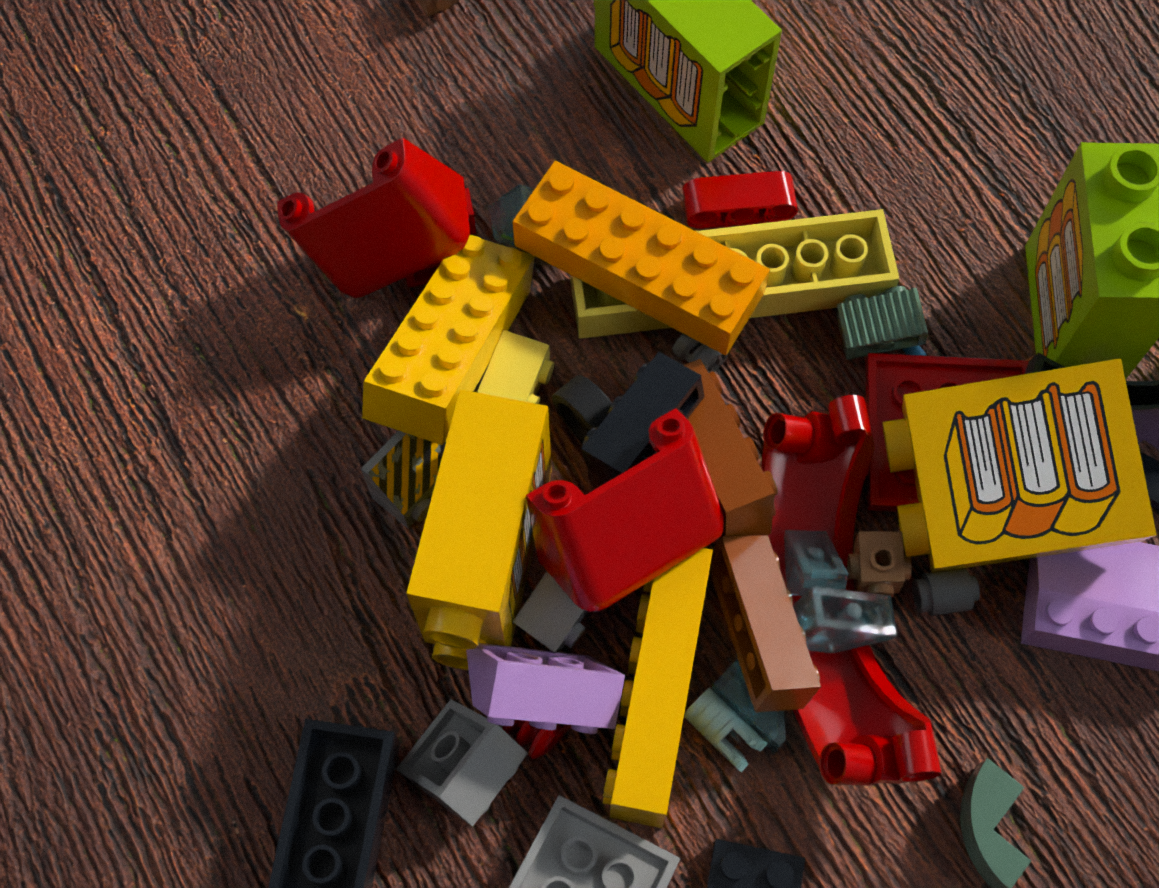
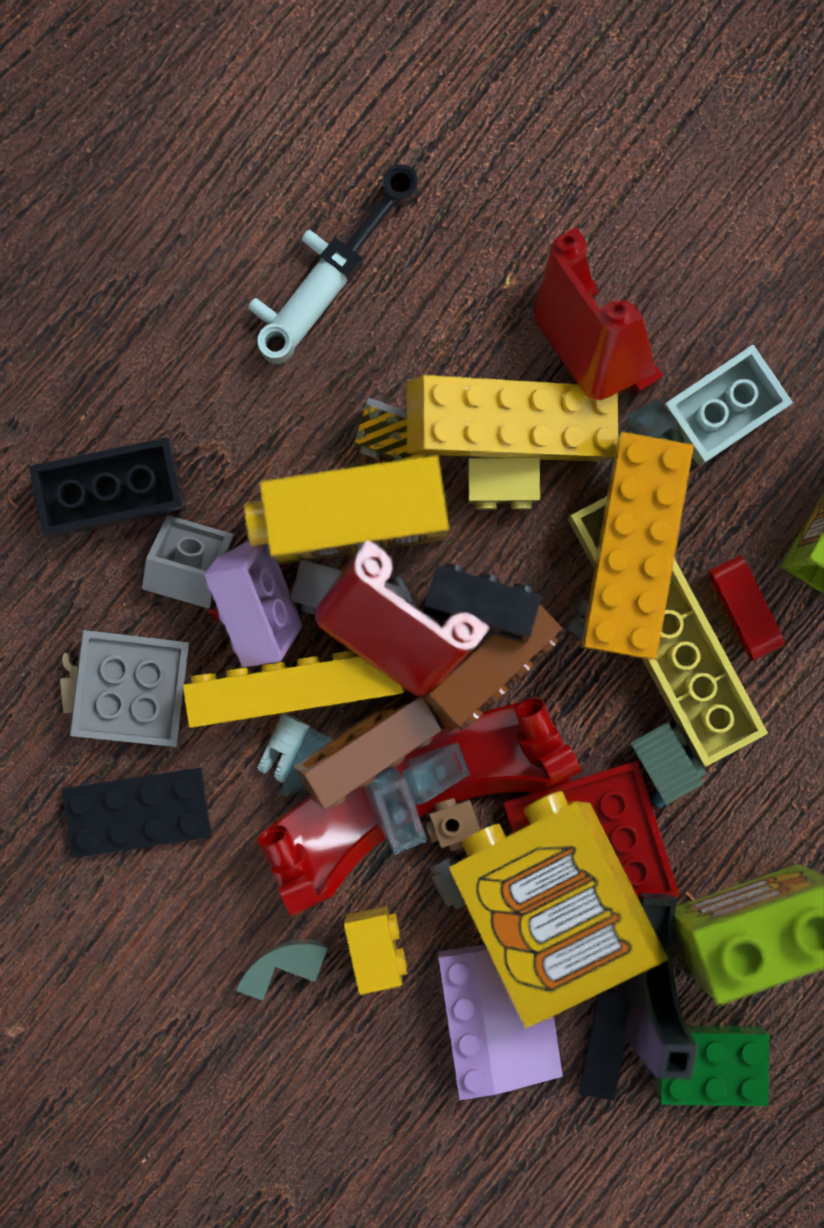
camera: 65 degrees right, 20 degrees up
(206, 482) = (336, 267): none -> light aqua piece
(520, 133) = (728, 404): none -> light aqua brick
(581, 406) = (495, 549): black tyre -> none
(1005, 701) = (373, 949): none -> yellow brick

